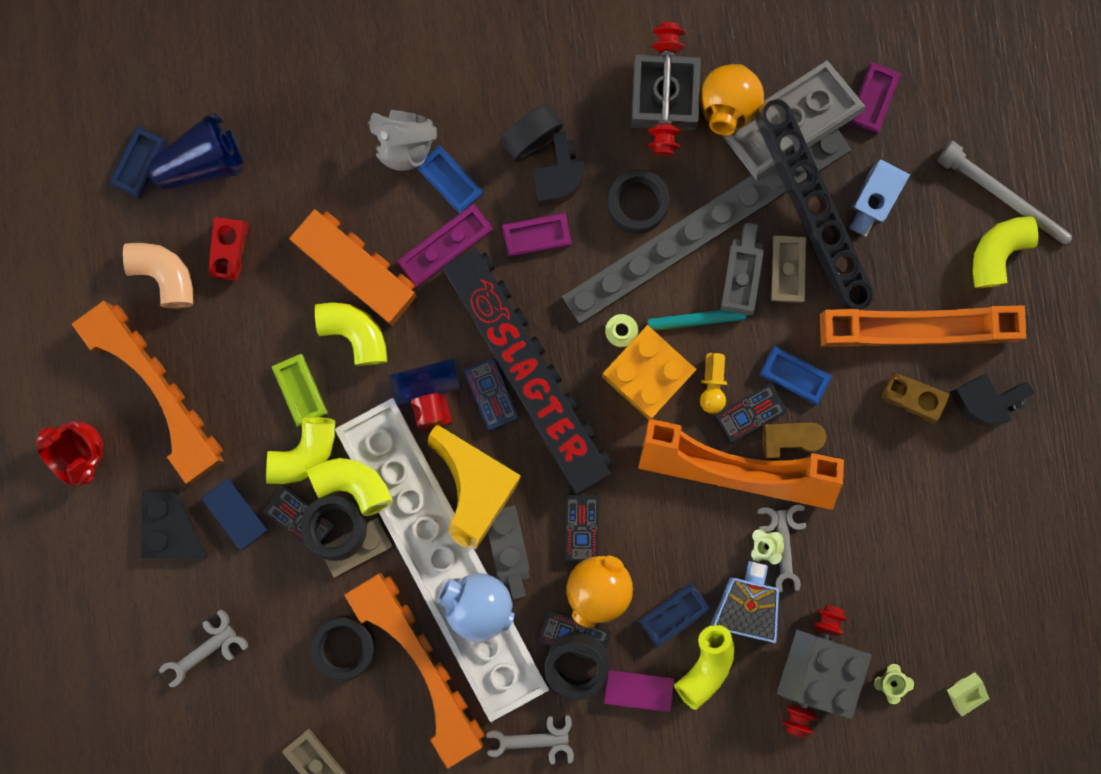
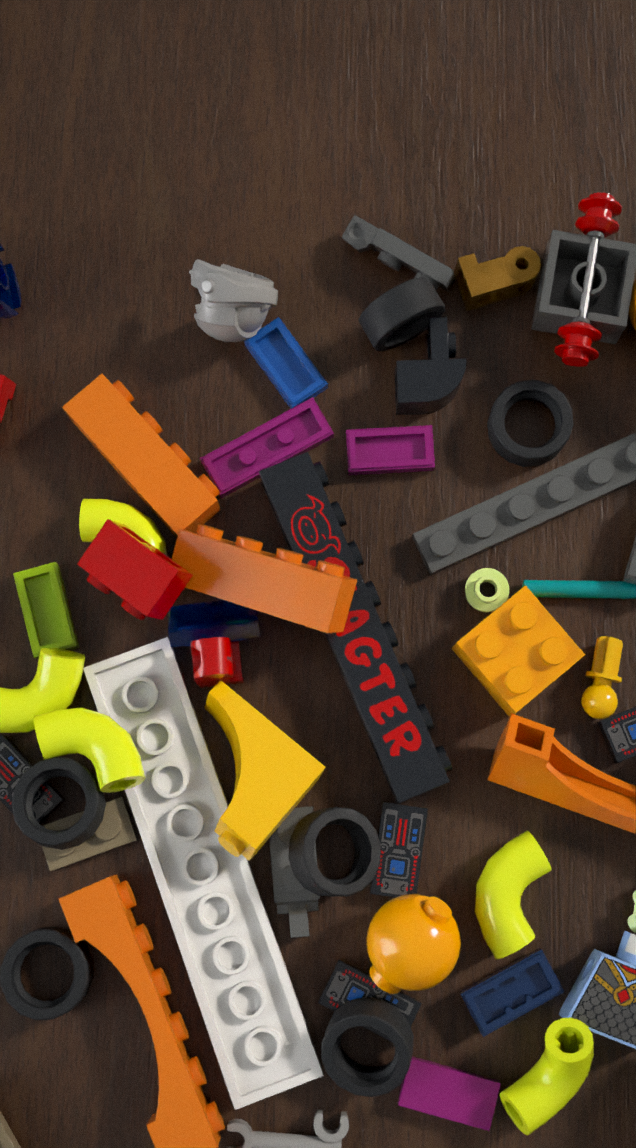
camera: 10 degrees right, 5 degrees down
(362, 354) = (134, 571): none -> red brick
(455, 347) = (265, 581): none -> orange brick
(477, 606) = (239, 944): light blue brick -> none
(491, 394) = (300, 658): dark blue tile -> none
(521, 84) = (397, 253): none -> dark grey hinge
(558, 531) = (366, 852): none -> black tyre
(599, 93) = (496, 278): none -> pearl gold leg
(658, 543) = (501, 891): none -> neon yellow cylinder

